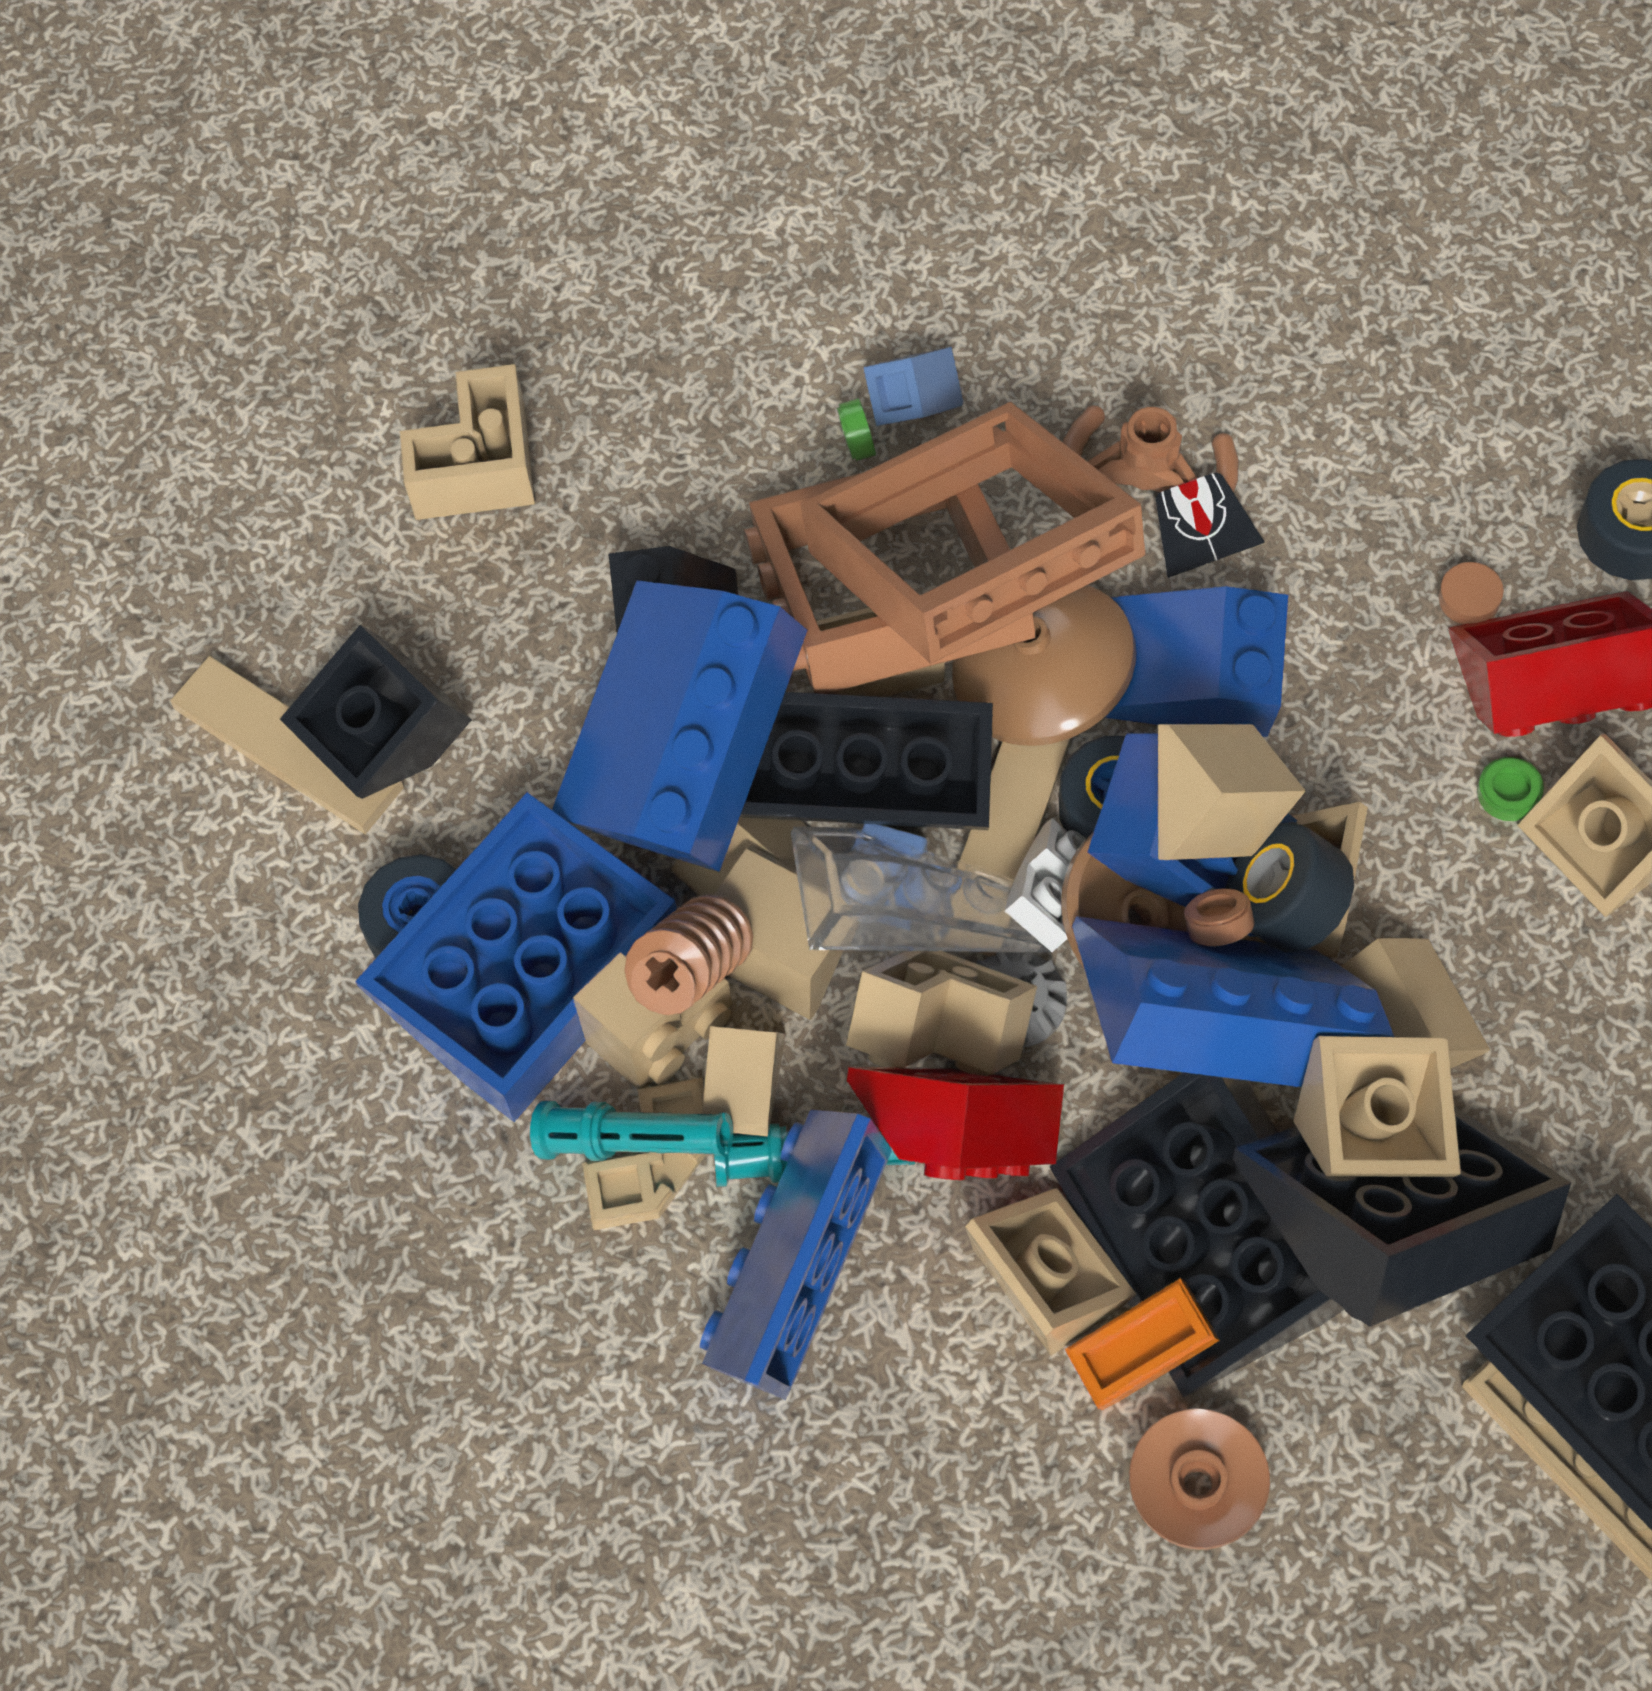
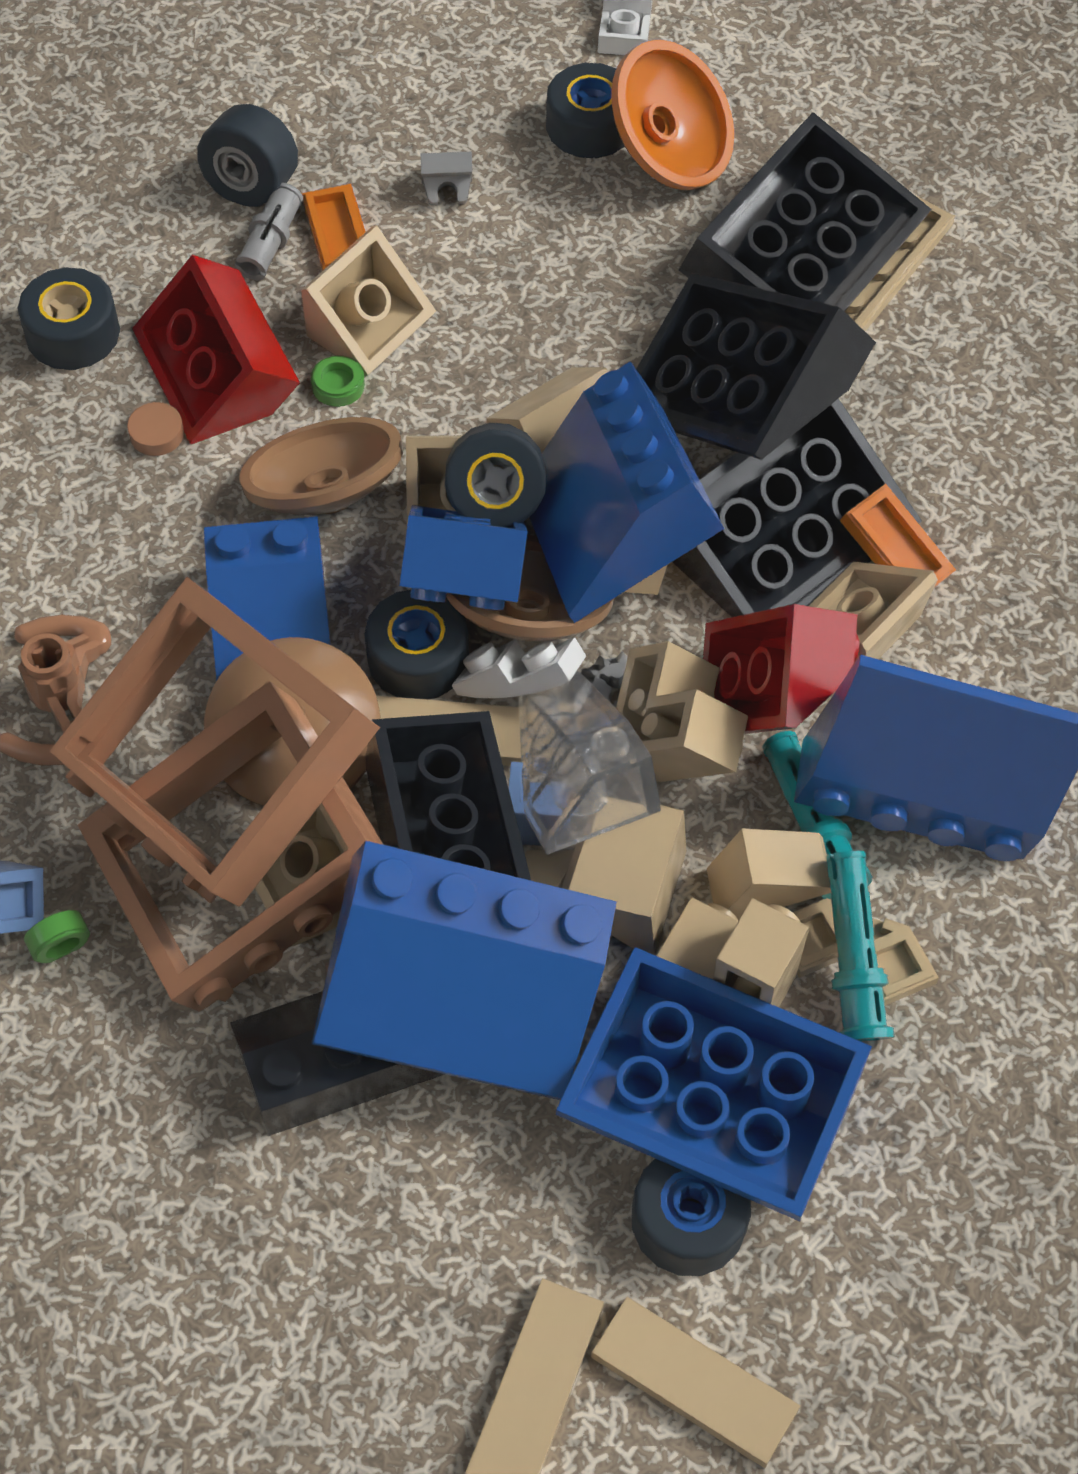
camera: 110 degrees left, 5 degrees down
(269, 891) = (695, 1382): none -> tan tile
(374, 715) = (487, 1314): black slope -> none
(473, 462) = (141, 1283): tan brick -> none
(688, 954) = (710, 889): nougat piece -> none
(1202, 524) = (109, 626): black sticker -> none
(1204, 1444) = (992, 472): nougat dish -> none
(1219, 791) = (450, 487): tan slope -> none
(1219, 917) = (546, 507): nougat tile -> none
(1365, 731) = (322, 466): none -> medium nougat dish
(1379, 1107) = (693, 372): tan slope -> none

